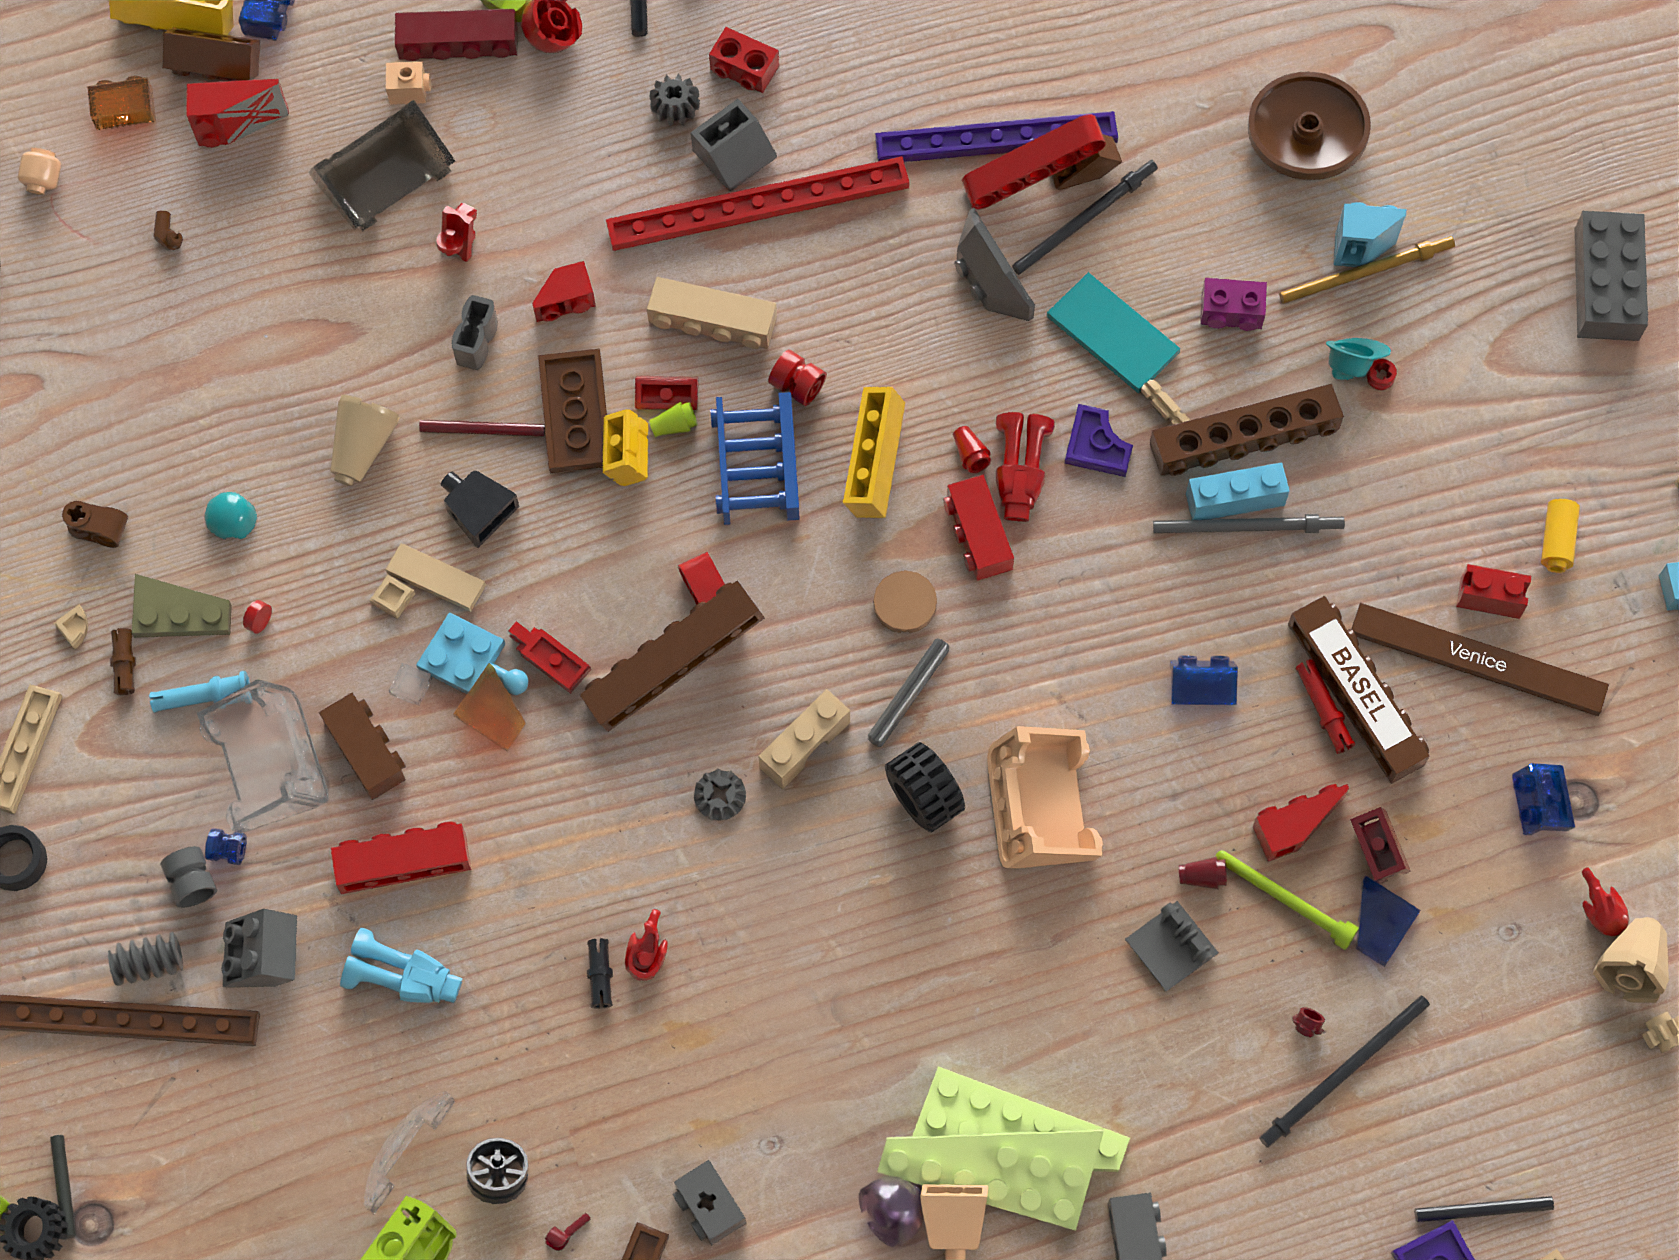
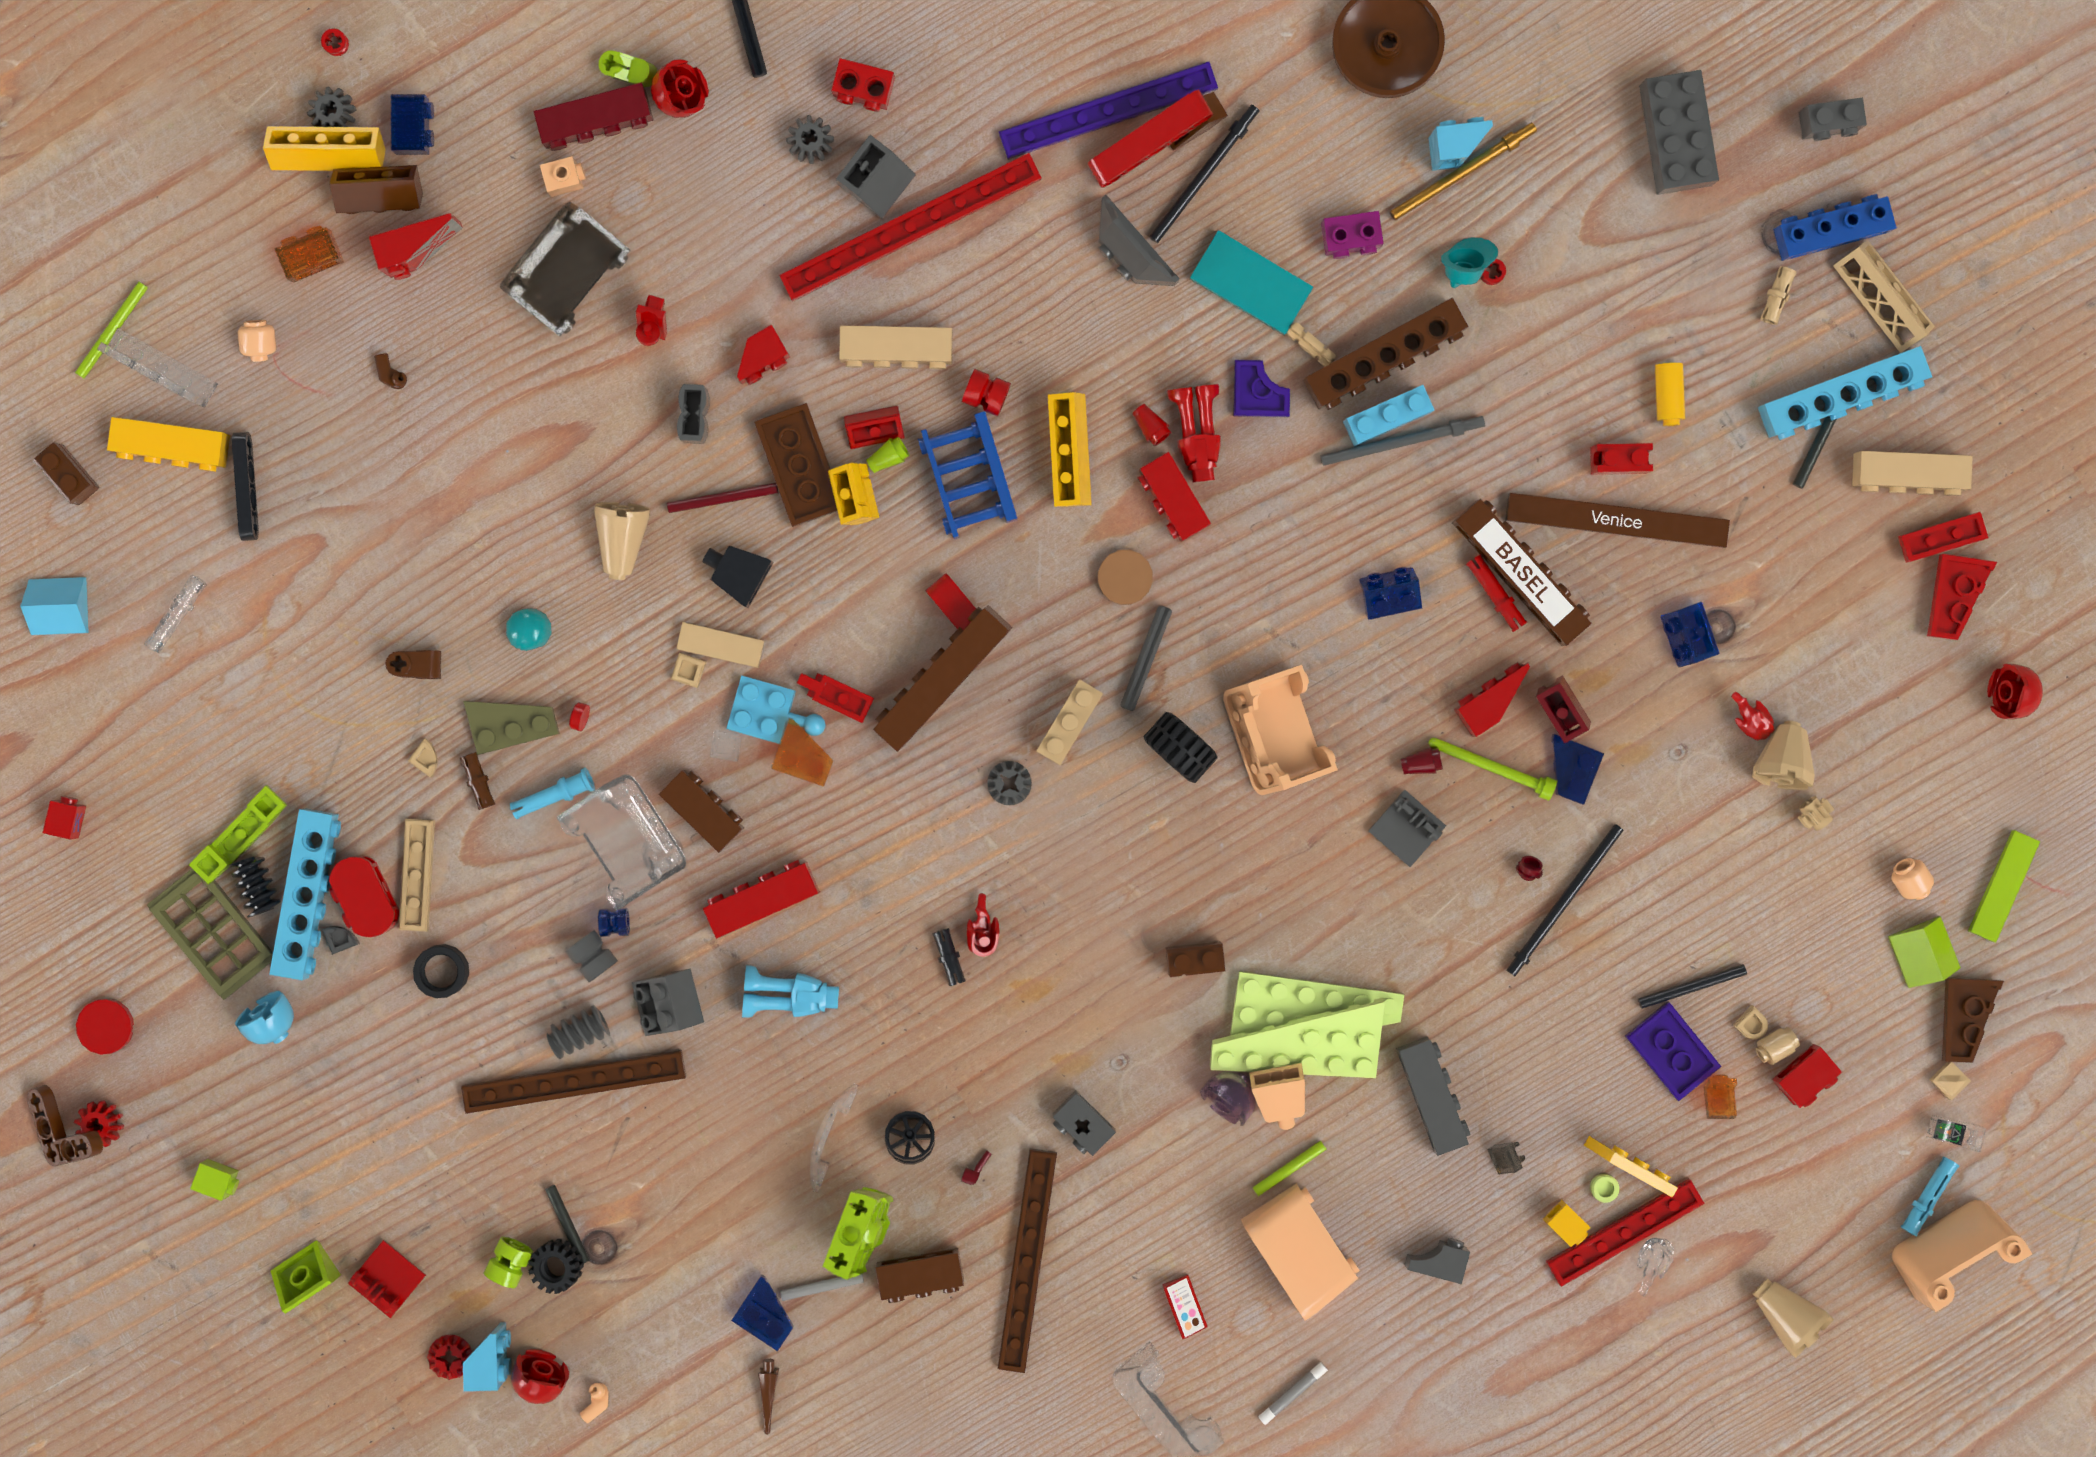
camera: 15 degrees left, 20 degrees up
(888, 1037) = (1195, 959): none -> reddish brown brick

